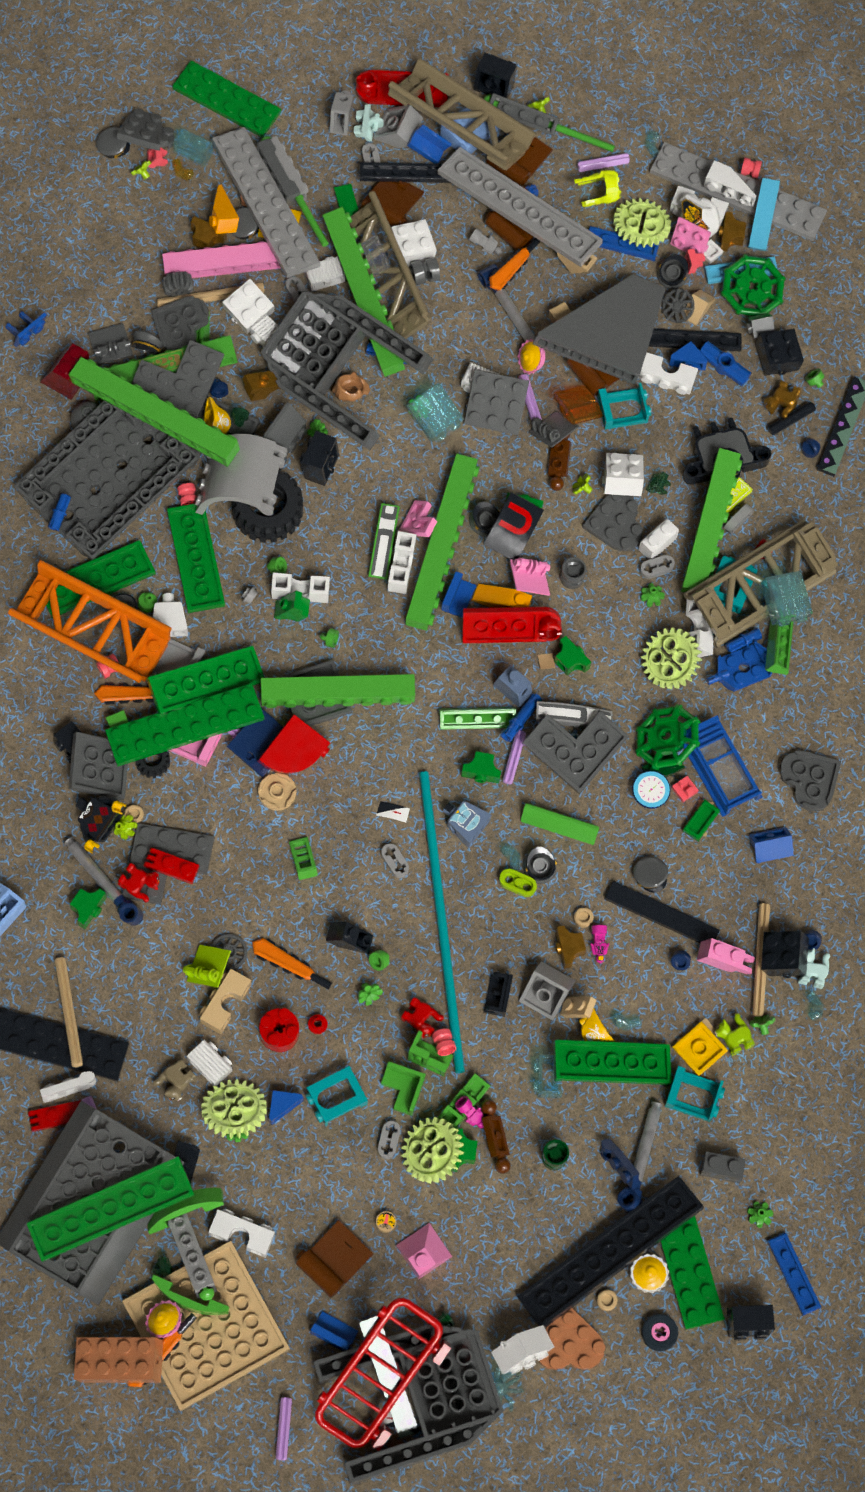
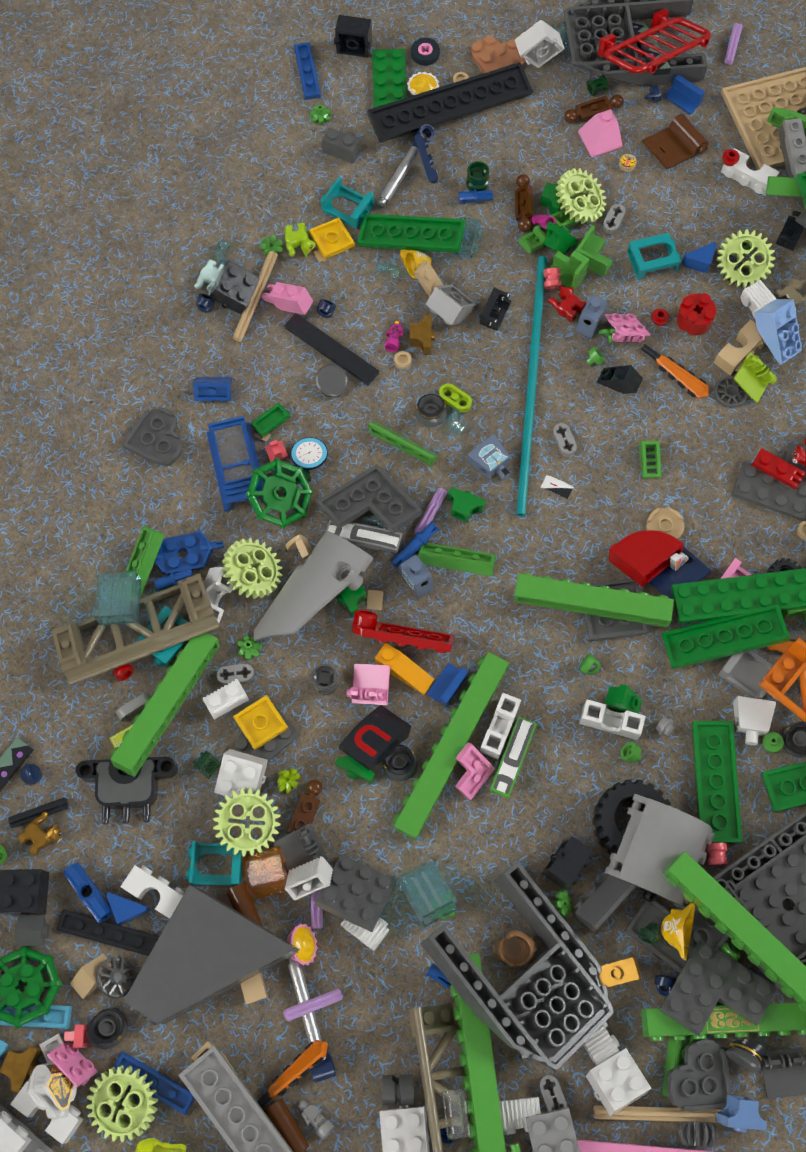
camera: 160 degrees left, 0 degrees up
(145, 302) = (741, 1114): none -> medium blue brick
(188, 1020) = (779, 328): none -> light blue slope
(260, 750) = (678, 560): none -> white tile
(268, 1240) = (730, 157): none -> red plate
(353, 998) = (627, 328): none -> bright pink hinge
(391, 1004) = (594, 312): none -> sand blue torso
(441, 1286) = (588, 109): none -> reddish brown plate
(445, 1090) = (559, 238): none -> green brick
(510, 314) = (312, 1005): none -> lavender axle
(540, 402) = (308, 878): none -> white brick
(559, 1134) = (474, 196): none -> blue axle
(605, 652) = (314, 584): none -> light grey panel
(606, 433) = (248, 802): none -> yellowish green gear
(620, 524) = (260, 722): none -> yellow tile
(629, 694) = (302, 544): none -> tan tile

